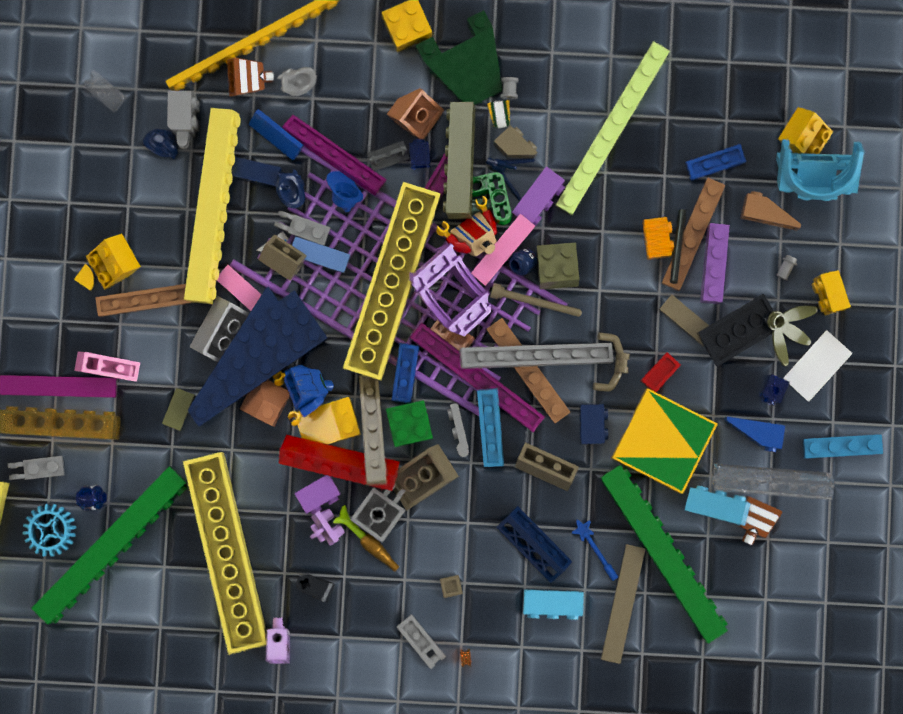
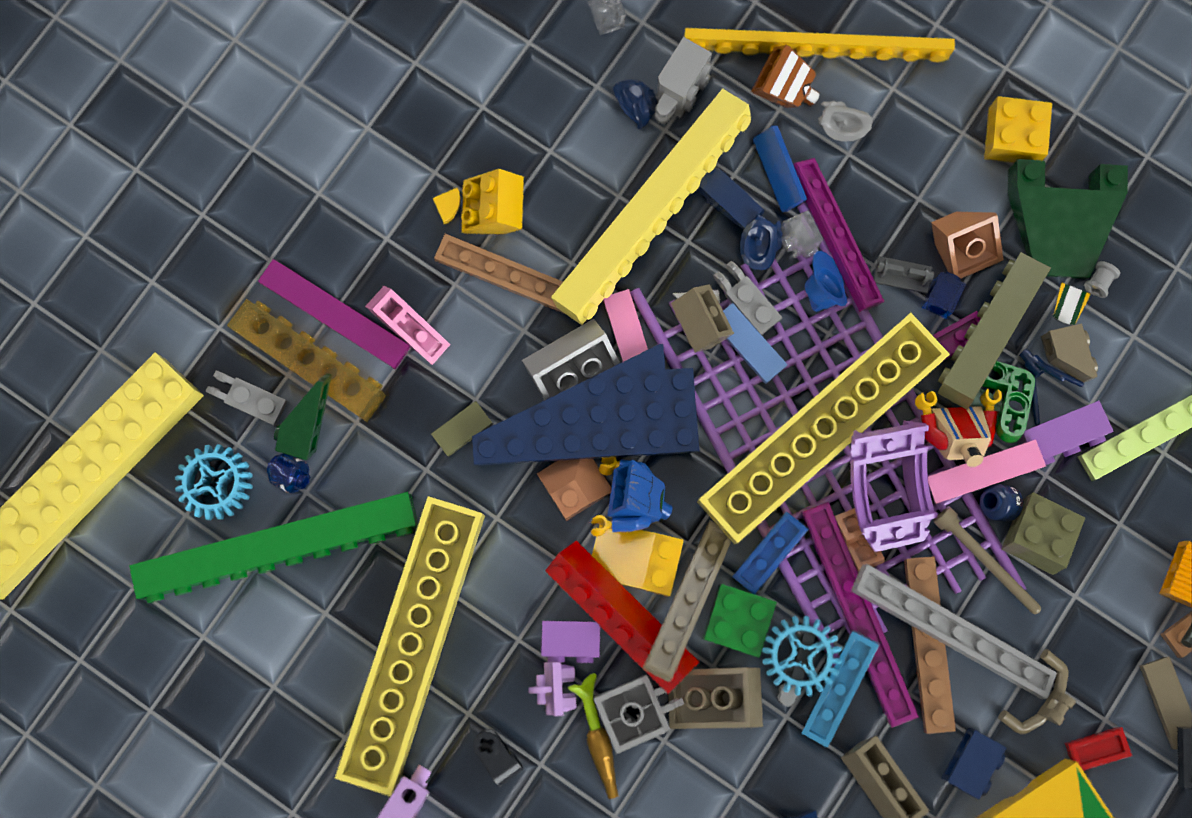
camera: 30 degrees right, 5 degrees down
(82, 466) = (301, 429): none -> dark green slope
(312, 171) = (801, 235): none -> clear brick
(447, 437) = (824, 643): none -> medium azure gear

